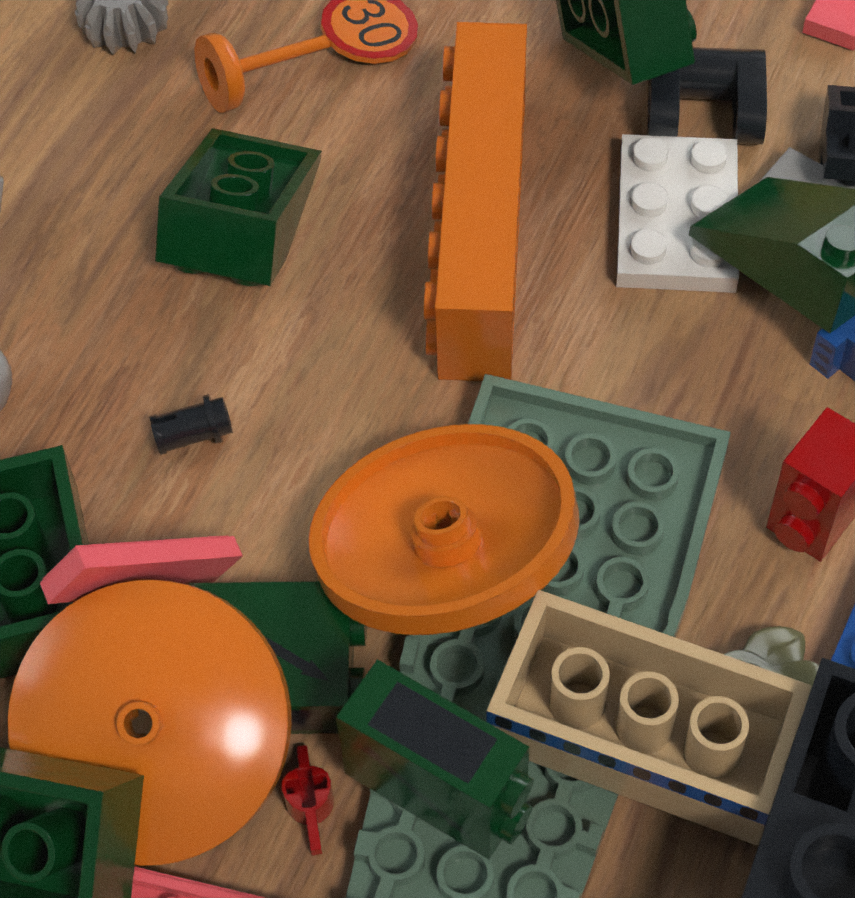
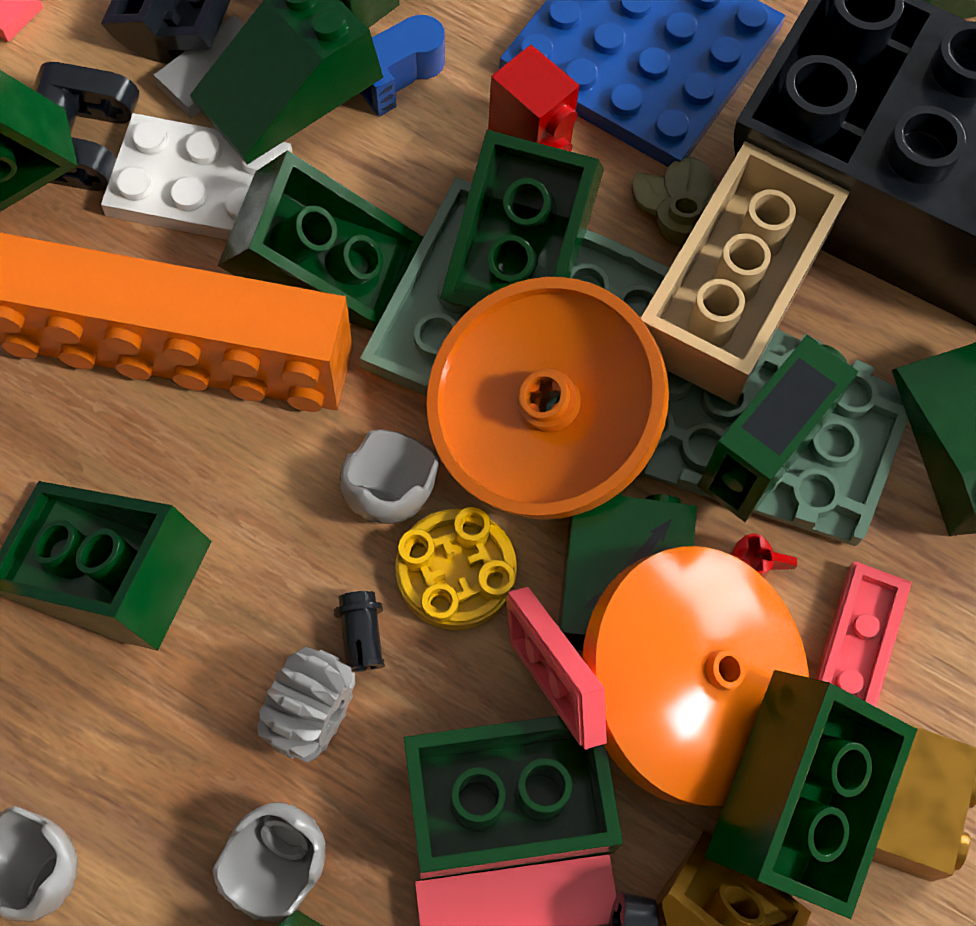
camera: 90 degrees left, 10 degrees up
(105, 378) = (306, 704): none -> light grey gear
(266, 501) = (455, 568): none -> yellow tile
(351, 414) = (388, 476): none -> light grey hair
(608, 315) = (319, 237): none -> dark green slope
(673, 489) = (520, 217): none -> dark green slope

